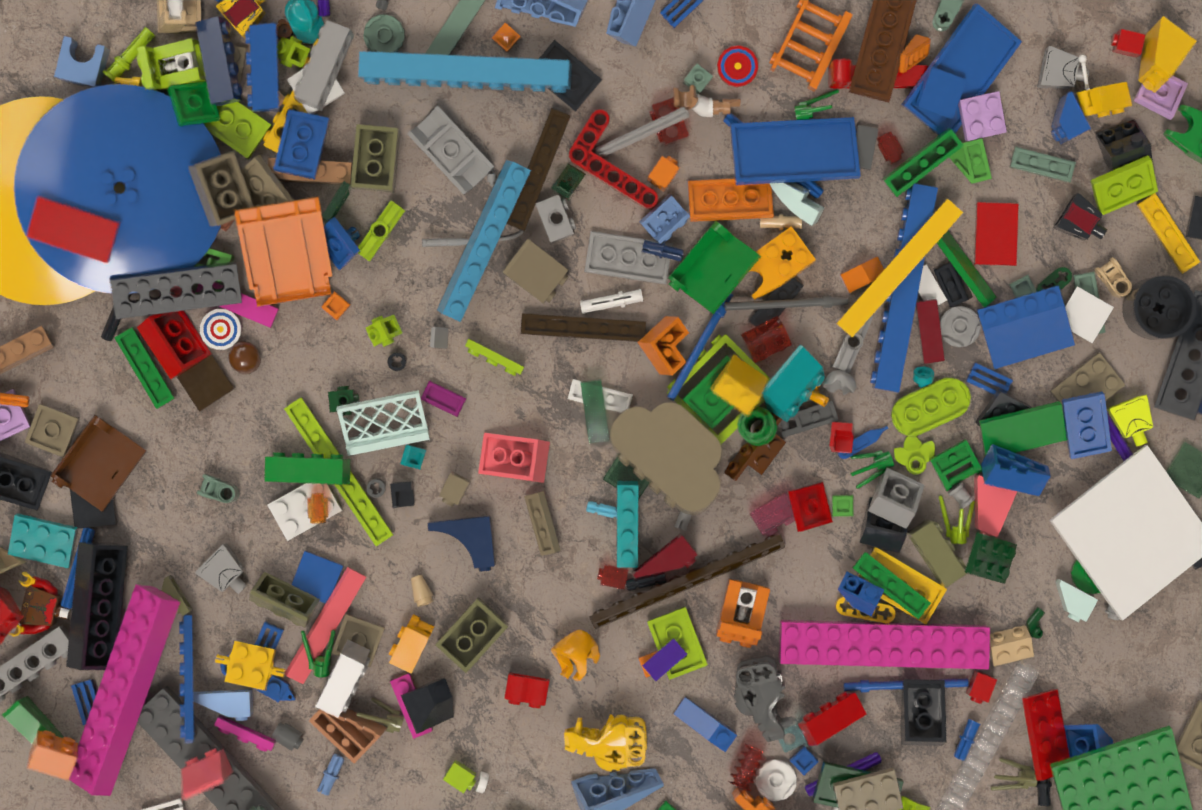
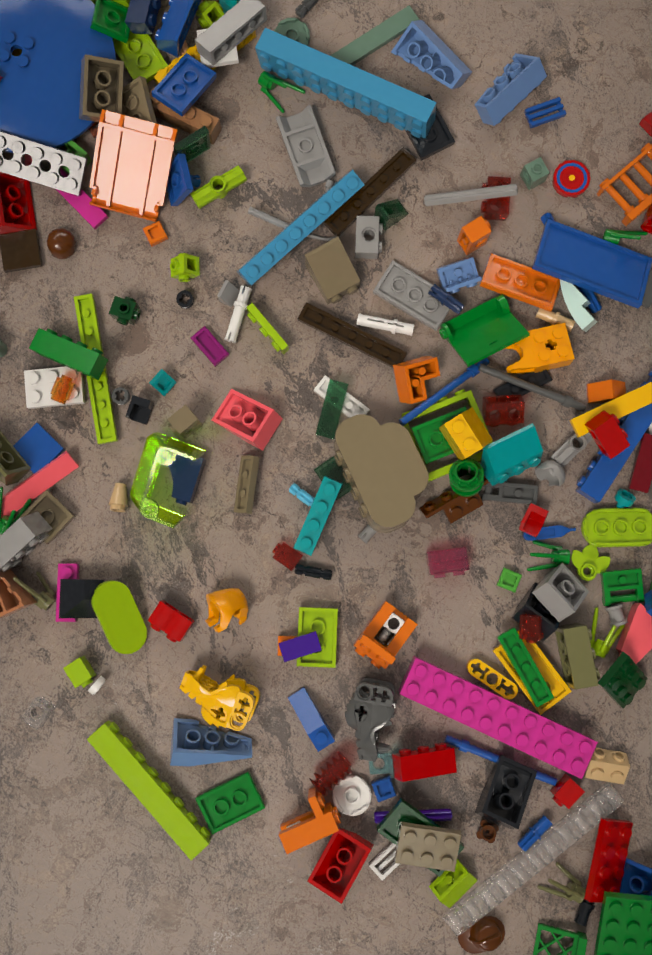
camera: 25 degrees right, 5 degrees down
(220, 329) = (52, 212): tile -> none
(375, 158) = (240, 125): olive brick -> none
(382, 96) = (269, 82): none -> green plant
(390, 437) = (144, 356): light aqua fence -> none
(411, 644) = (89, 539): light orange hinge -> none
(451, 528) = (158, 450): none -> clear neon green windscreen
(458, 354) = (238, 314): none -> white pin
(472, 635) = (144, 553): olive brick -> none
(475, 707) = (119, 617): none -> lime tile
(506, 37) = (391, 75): orange tile -> none
(602, 174) = (429, 213): red beam -> none
(670, 557) = (346, 559): dark red slope -> none
(693, 578) = (349, 587): dark brown plate -> none
(702, 105) = (529, 196): medium nougat piece -> none
(810, 506) = (481, 568): red tile -> none
(818, 397) = (527, 478): light orange arm -> none
(860, 593) = (495, 662): blue slope -> none
(877, 325) = (608, 434): none -> red brick
(880, 546) = (530, 628): none -> clear red bracket
(916, 753) = (490, 837): none -> reddish brown plate
(1033, 623) = (634, 755): dark green arm -> none

